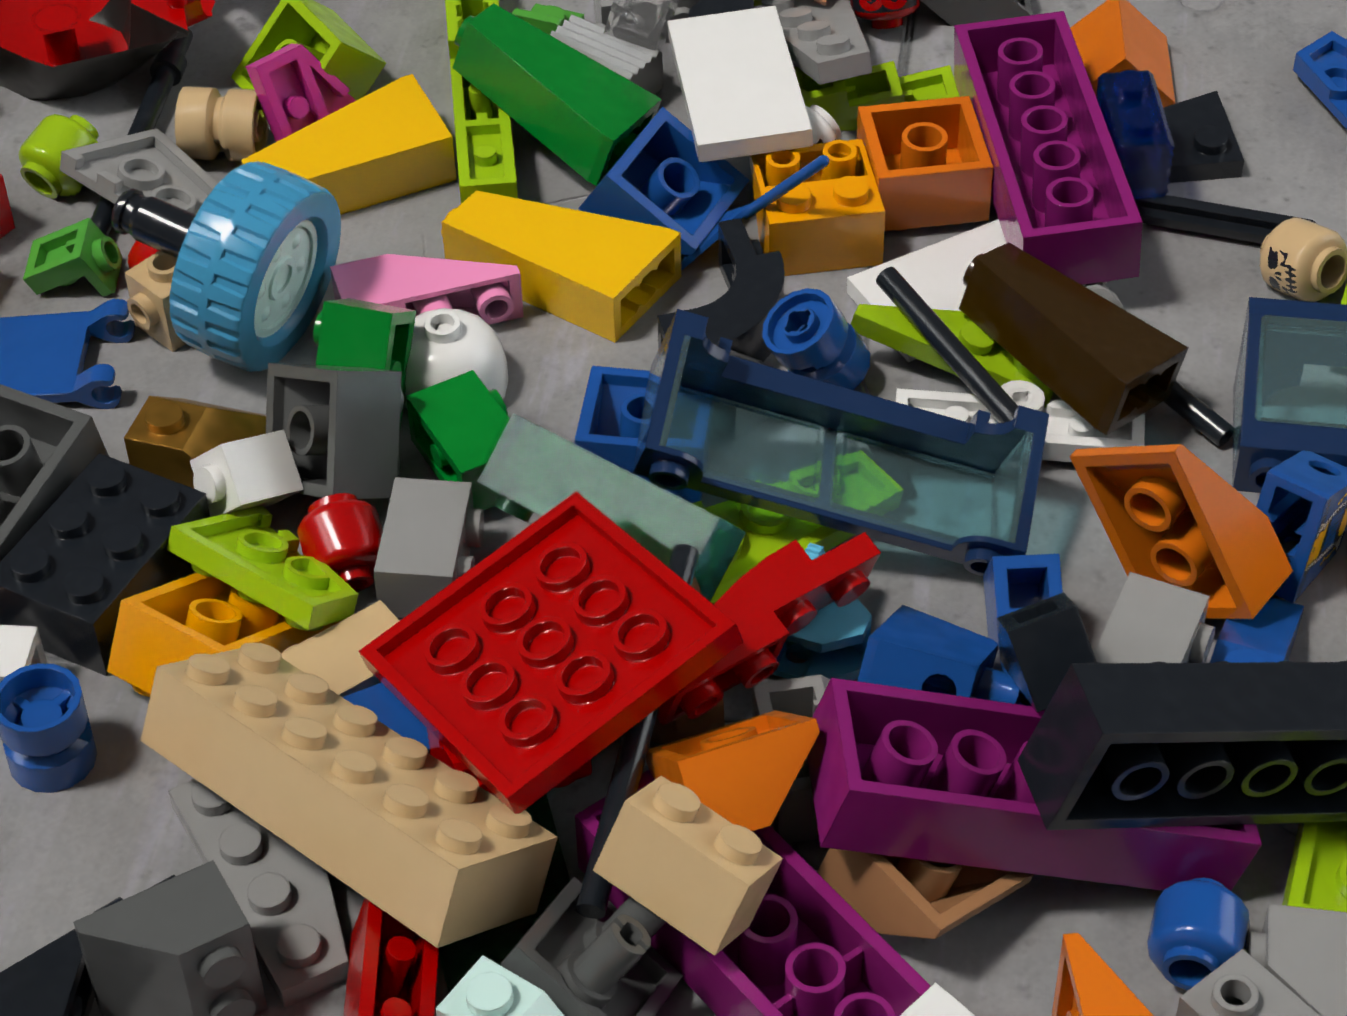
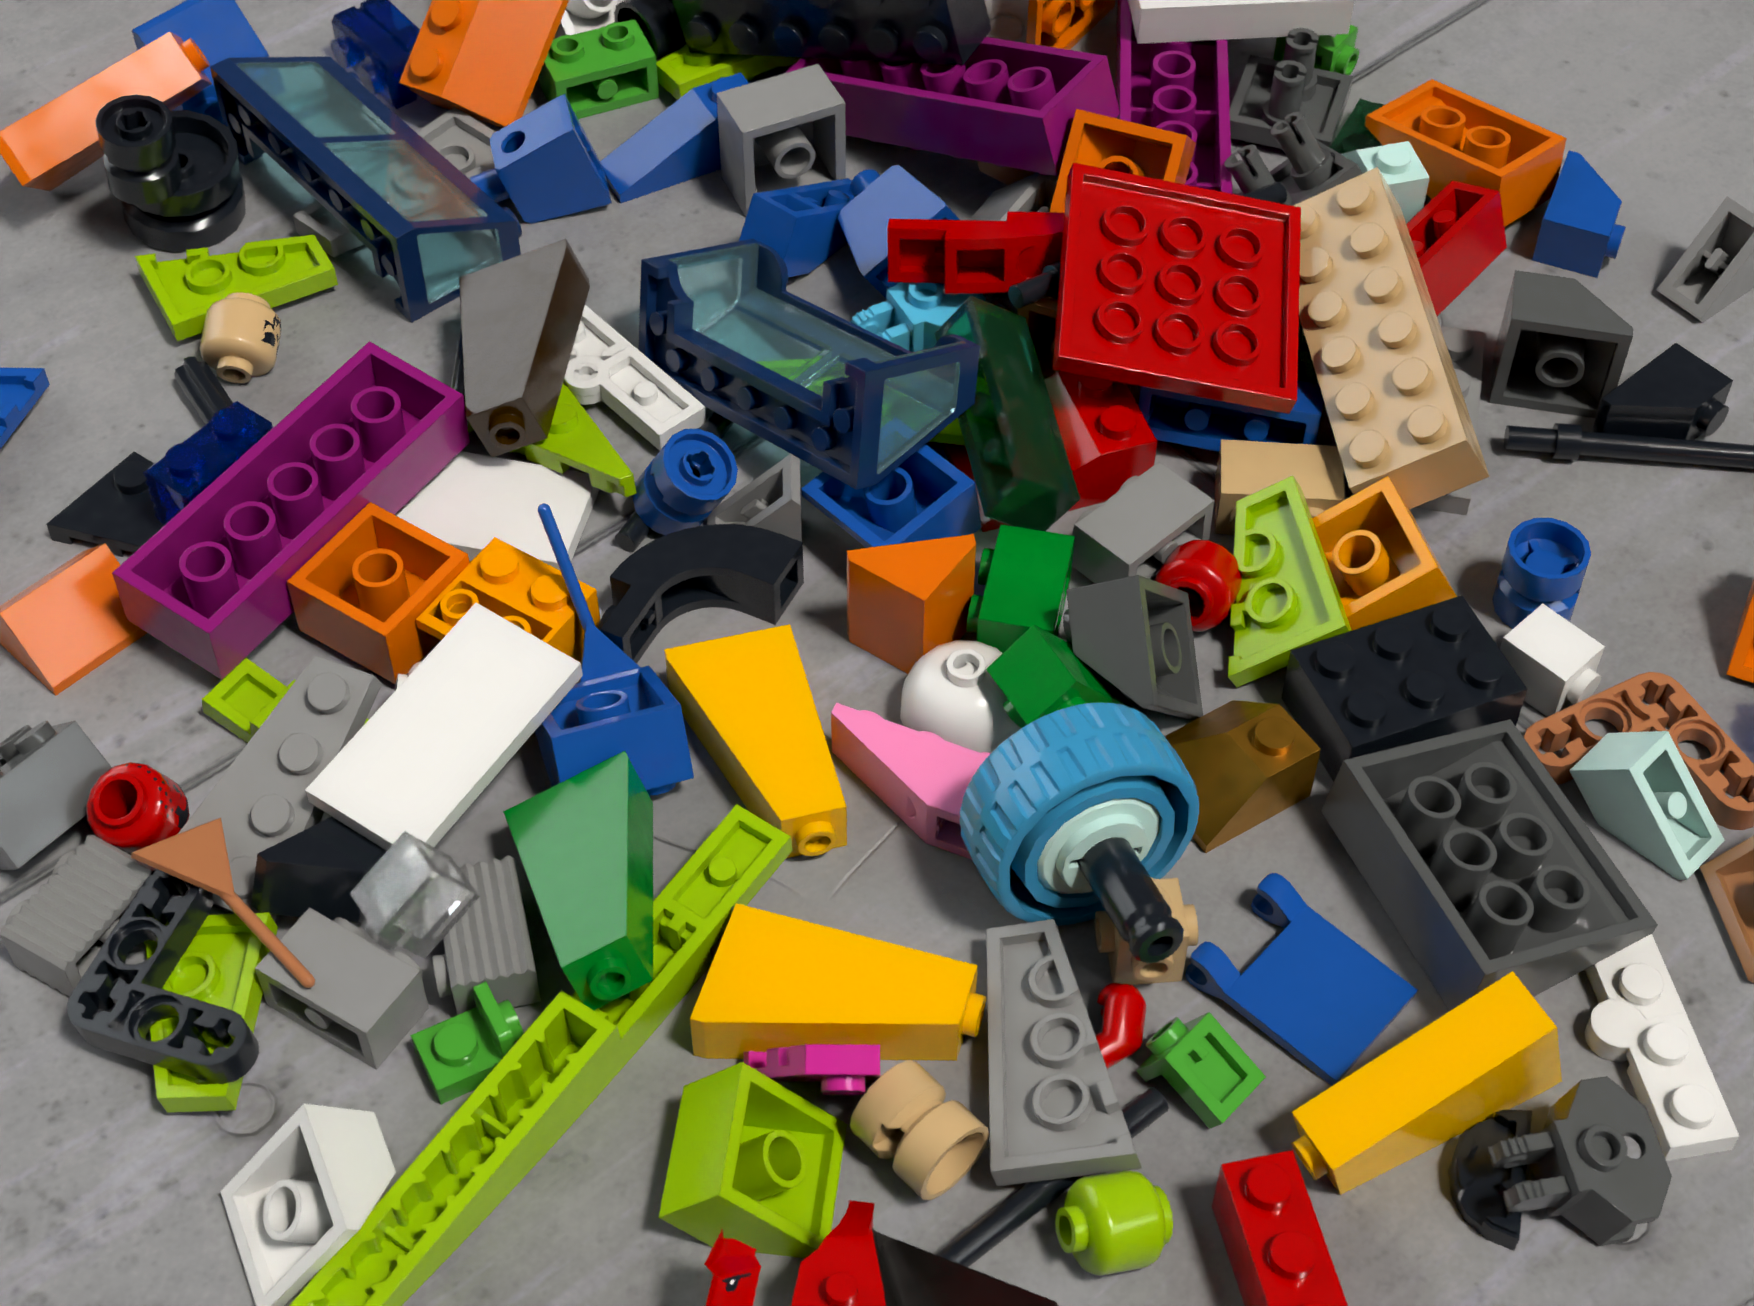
camera: 140 degrees left, 5 degrees up
(247, 473) = (1237, 671): white brick -> none
(548, 354) = (909, 597): none -> orange slope
(687, 864) = (1220, 126): tan brick -> none
(947, 345) = (602, 402): black bar -> none
(1041, 645) = (864, 110): black slope -> none
(1184, 525) = (652, 159): orange slope -> none

